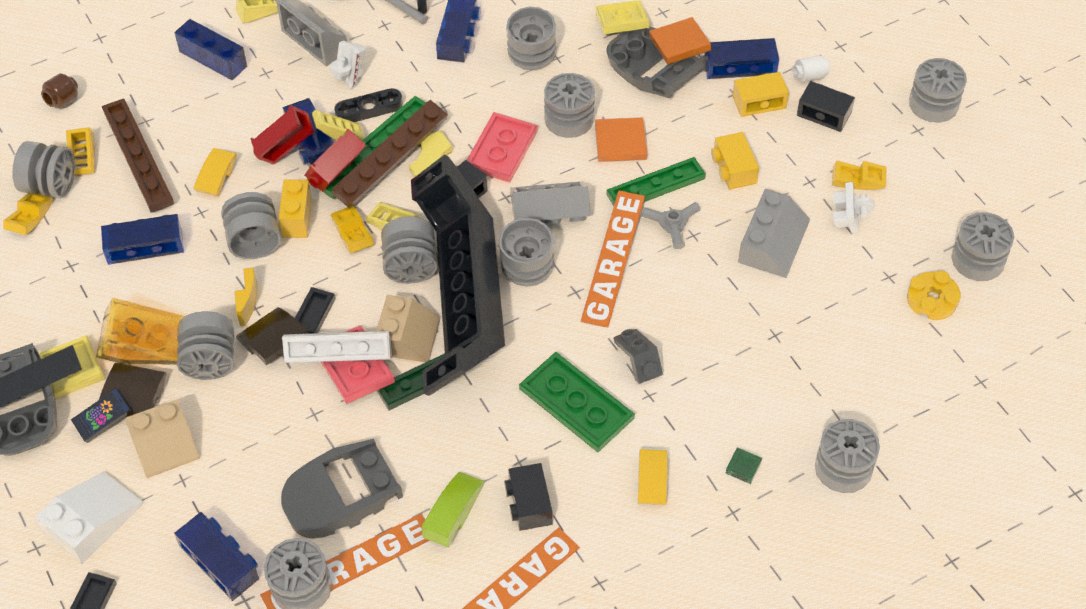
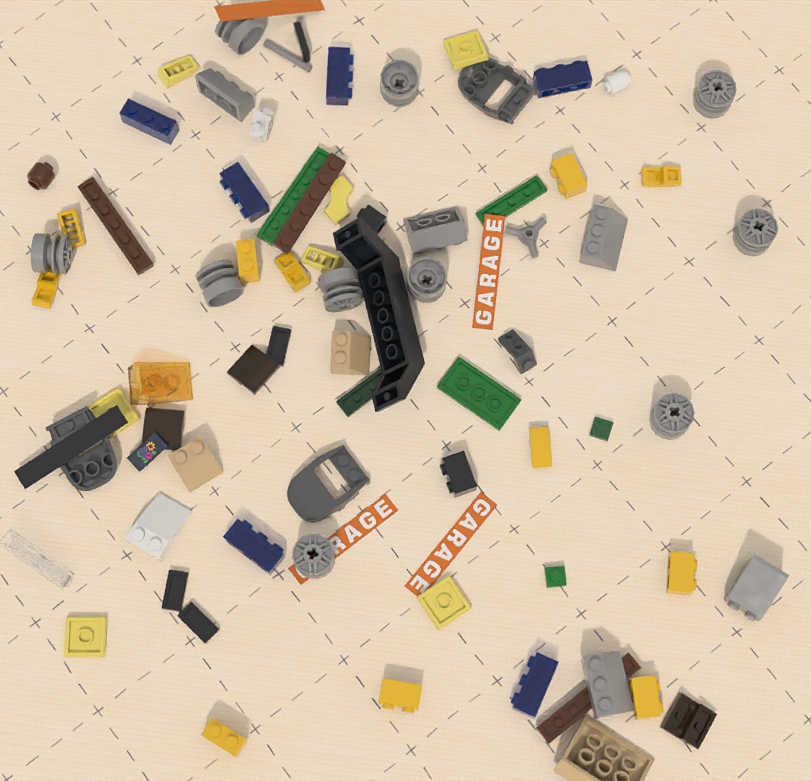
camera: 10 degrees left, 20 degrees up
(142, 239) = (139, 301): clear blue brick -> none
(205, 345) = (209, 388): light grey wheel -> none
(214, 171) = (179, 233): yellow slope -> none
(246, 299) = (228, 344): yellow slope -> none
(282, 135) = (225, 200): red window -> none
(334, 160) = (271, 219): window -> none
(335, 126) = (267, 187): light yellow slope -> none
(337, 346) = (304, 377): white tile -> none
(358, 377) = (316, 386): coral tile -> none
(384, 96) = (280, 165): black beam -> none
(451, 509) = (407, 489): lime slope -> none
(502, 146) = (390, 182): coral tile -> none
(569, 105) = (437, 152): light grey wheel -> none
(620, 139) = (479, 165): orange tile -> none
(680, 40) = (514, 73): orange tile -> none
(760, 94) = (580, 111): yellow brick -> none
(825, 106) = (631, 116): black brick -> none
(854, 207) = (655, 200): white hips -> none
(938, 283) = (712, 269): yellow plate -> none

